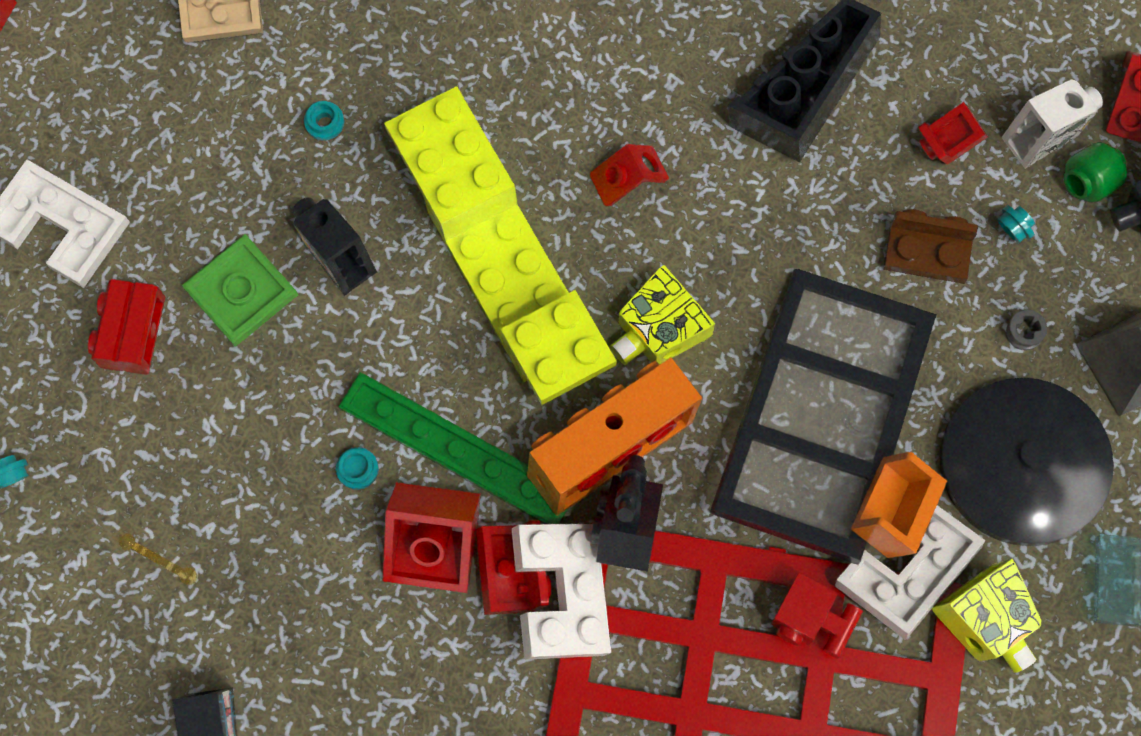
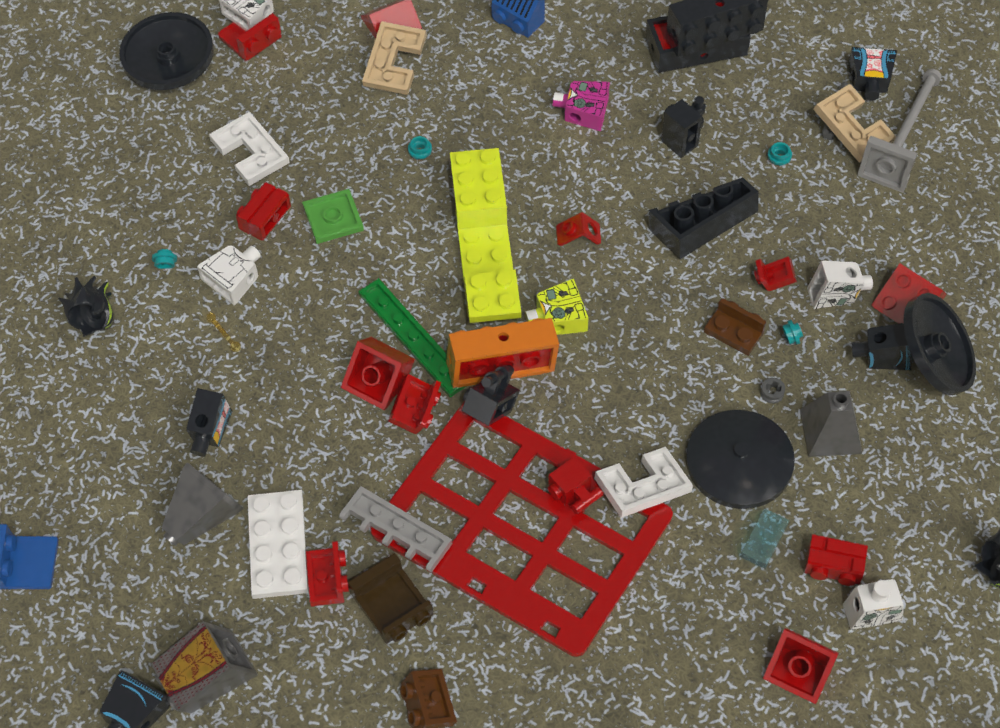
camera: 20 degrees right, 15 degrees down
(124, 453) = (230, 272): none -> white torso
(327, 237) = (393, 197): black torso -> none
(357, 468) = (353, 325): teal plate -> none
(582, 620) = (440, 441): white plate -> none
(823, 413) = (631, 389): door -> none
(899, 505) = (648, 442): orange panel -> none
(993, 615) = (678, 525): neon yellow torso -> none
(1095, 172) = (851, 321): green head -> none

